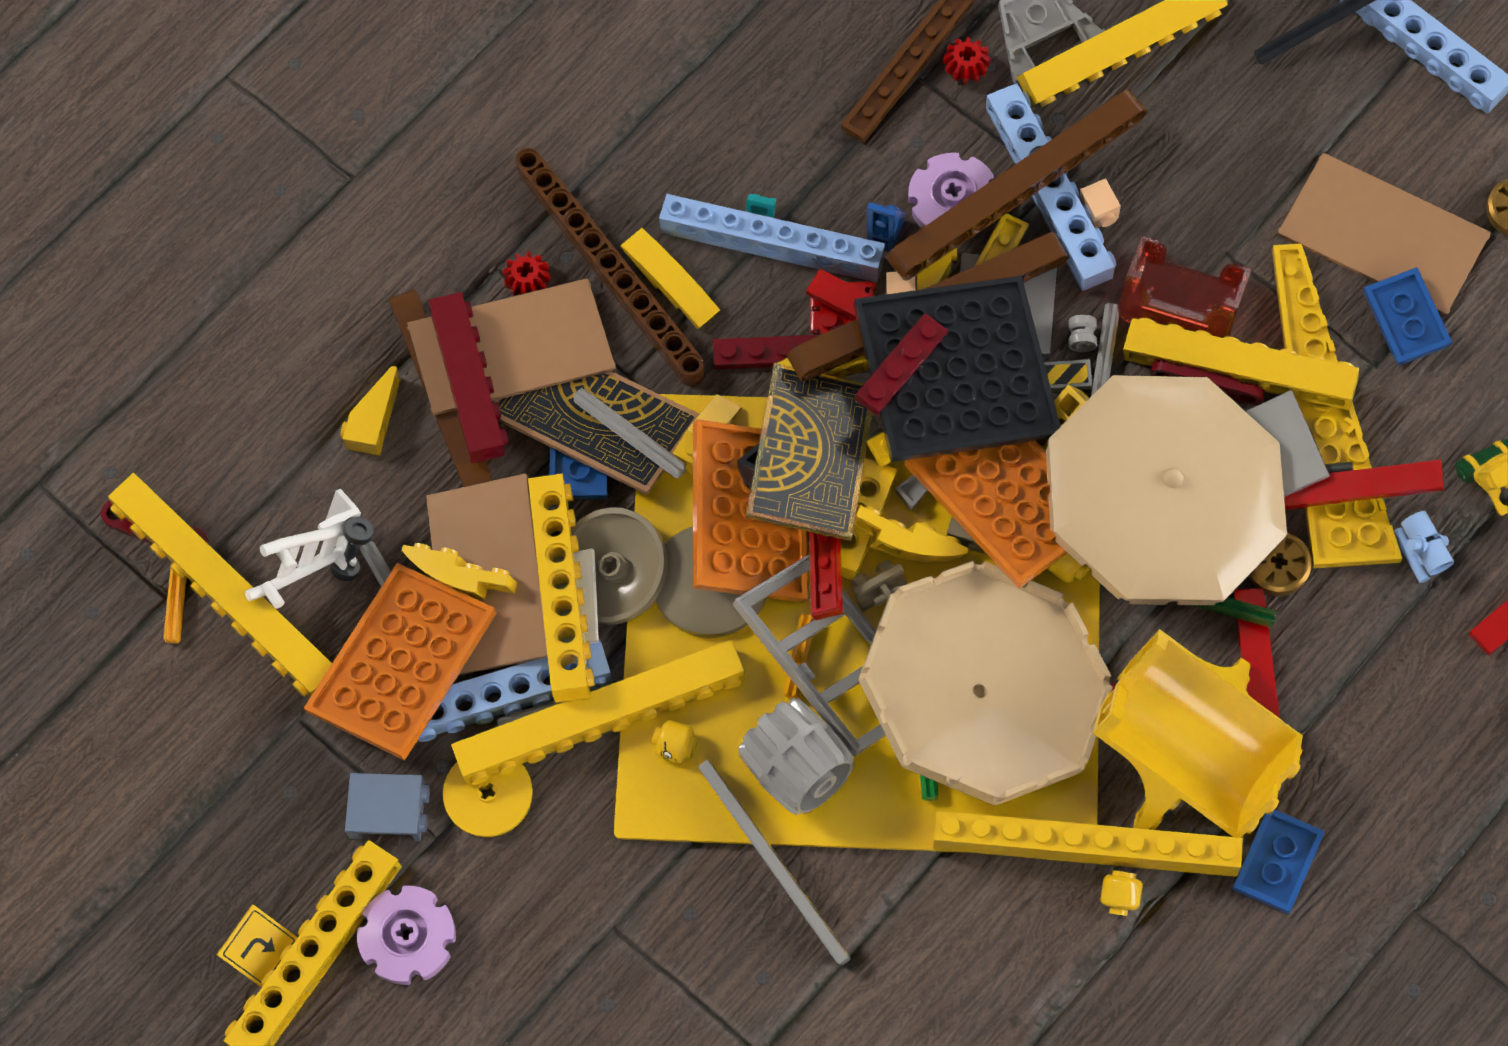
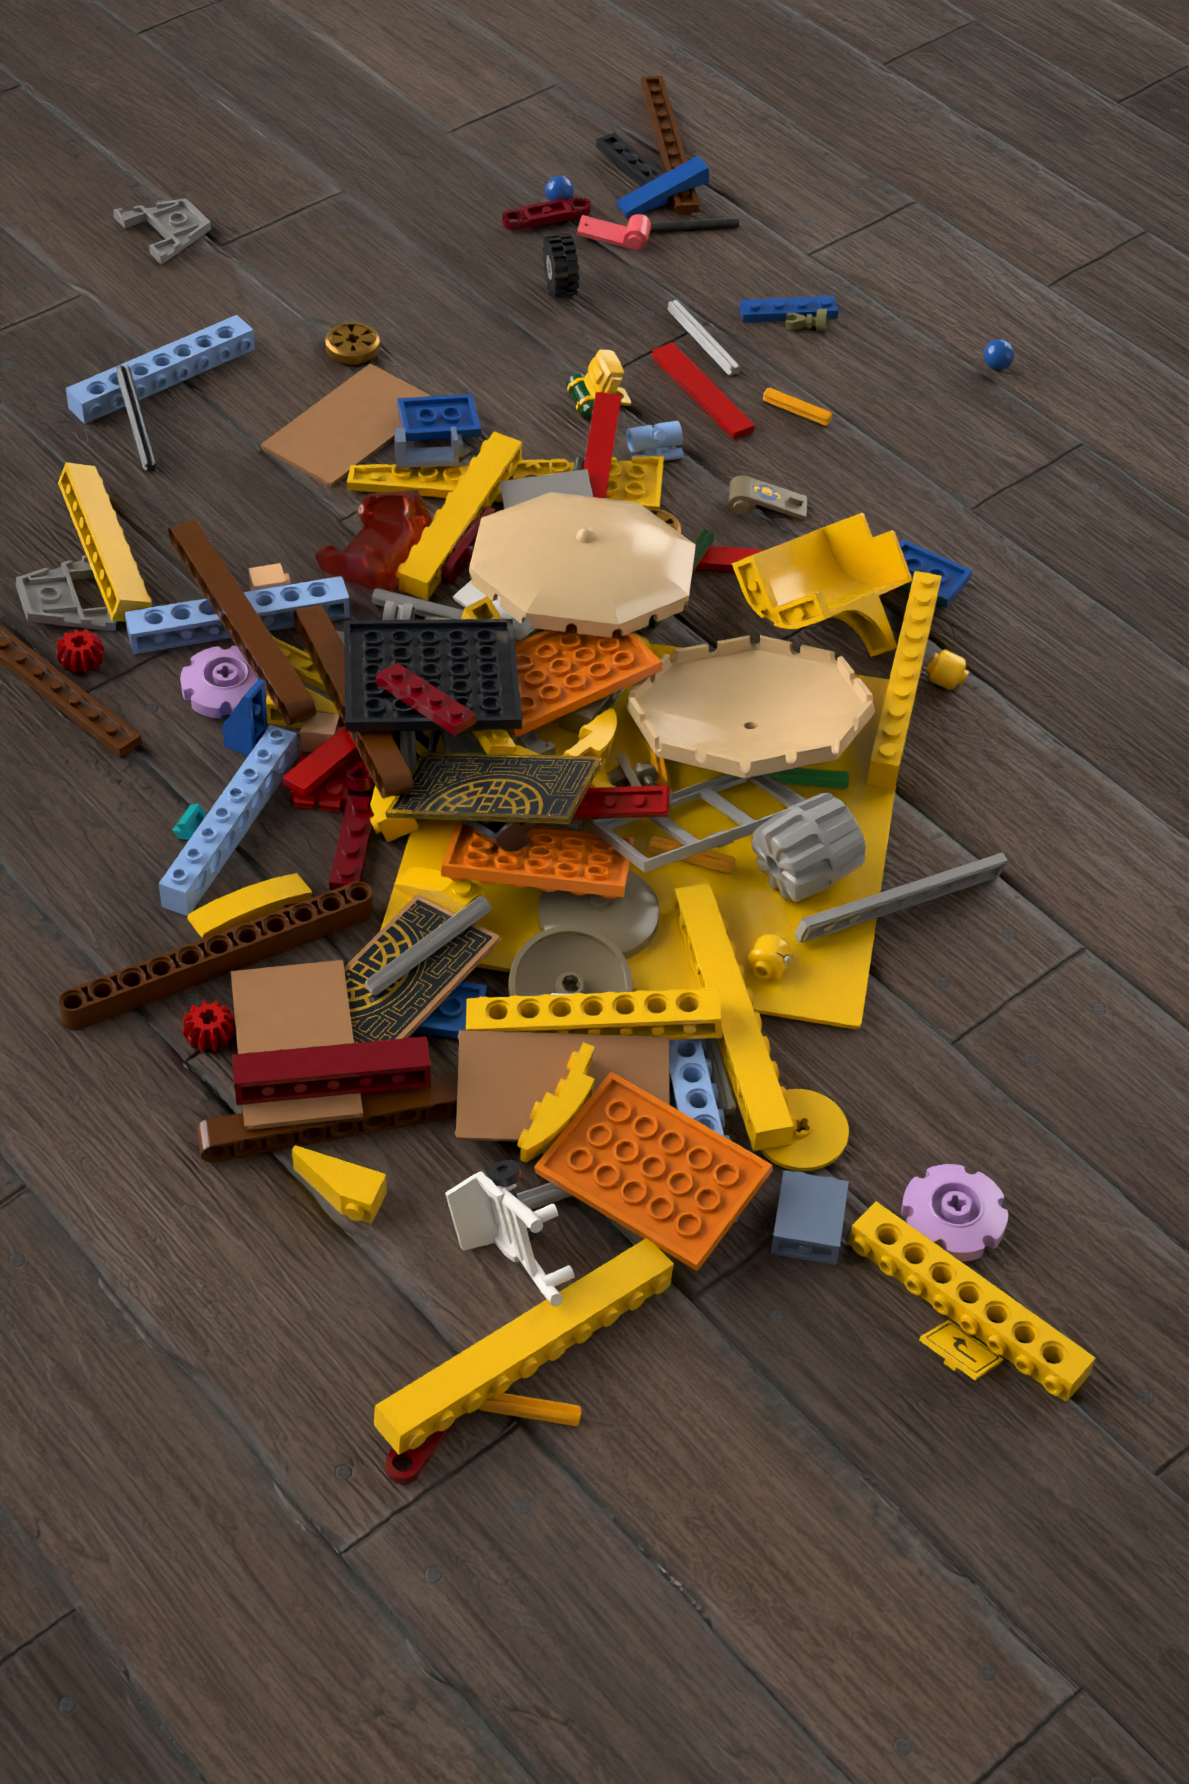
camera: 90 degrees left, 20 degrees down
(1338, 311) = (429, 455): none -> sand blue panel
(1362, 678) = (747, 492): none -> dark tan door

